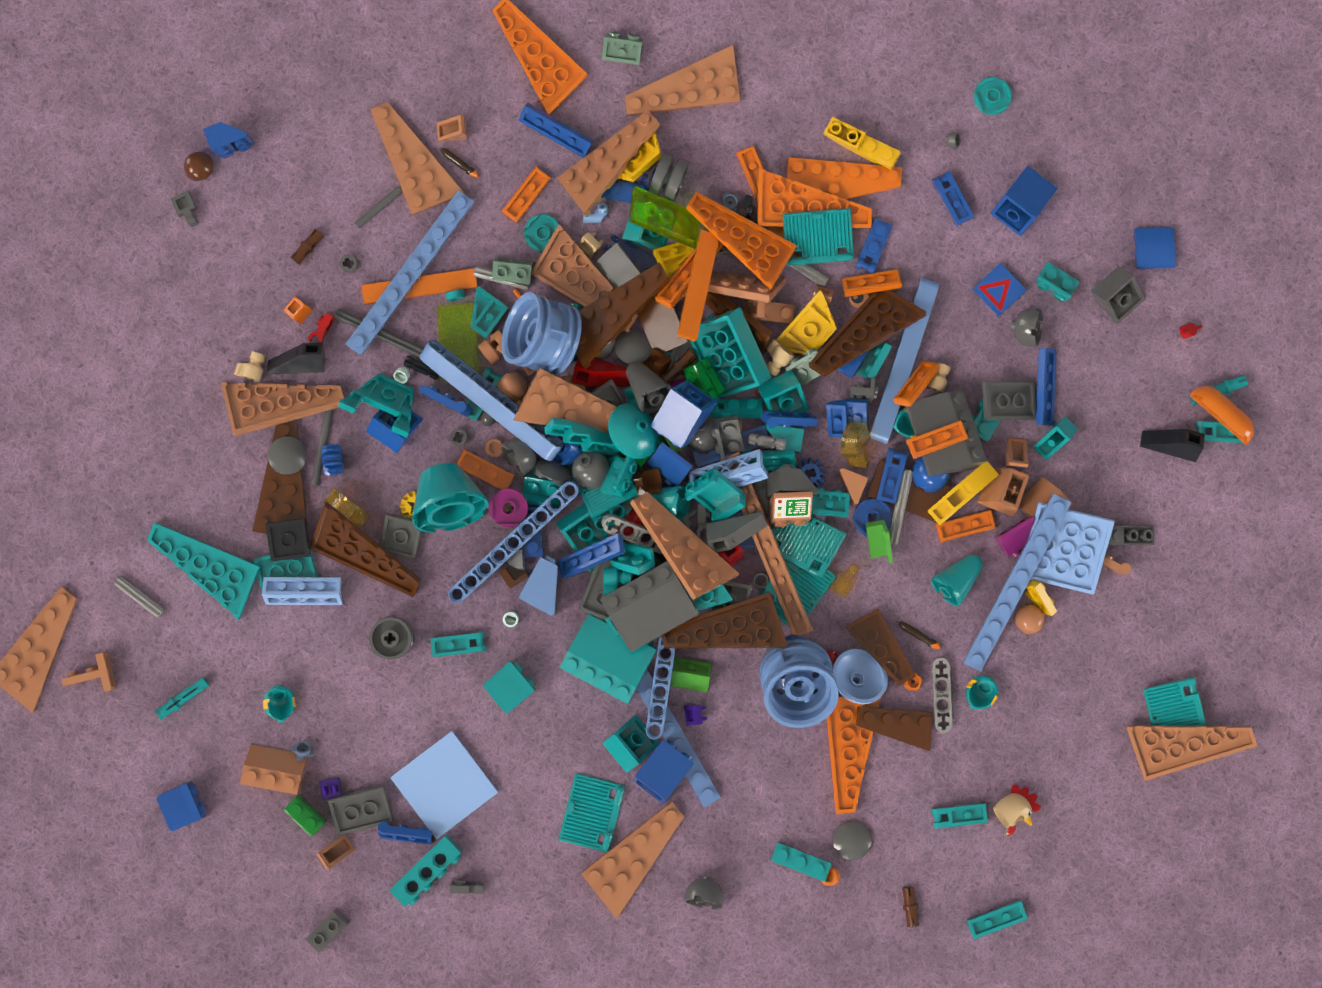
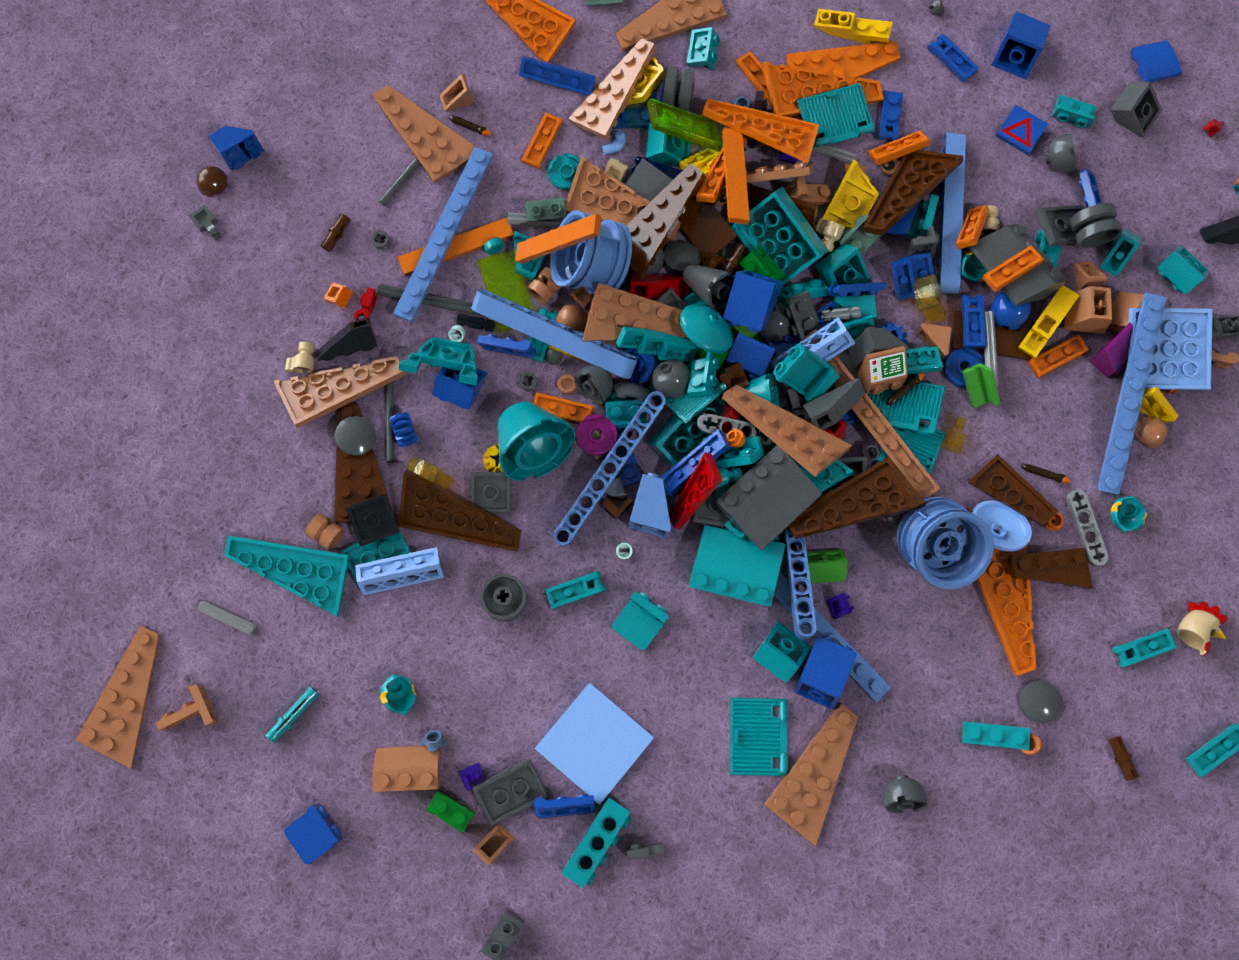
camera: 15 degrees left, 10 degrees down
(241, 539) = (322, 530): none -> nougat wheel
(511, 318) = (558, 238): none -> orange tile
(586, 584) = (697, 489): none -> red wing
(632, 545) = (736, 438): none -> orange plate
(707, 133) = (703, 48): none -> teal bracket
(809, 527) = (905, 389): none -> dark brown piece
(958, 579) = (1068, 408): teal cone -> none
(1031, 412) = (1096, 225): none -> dark grey wheel
(1111, 469) = (1183, 270): none -> teal slope

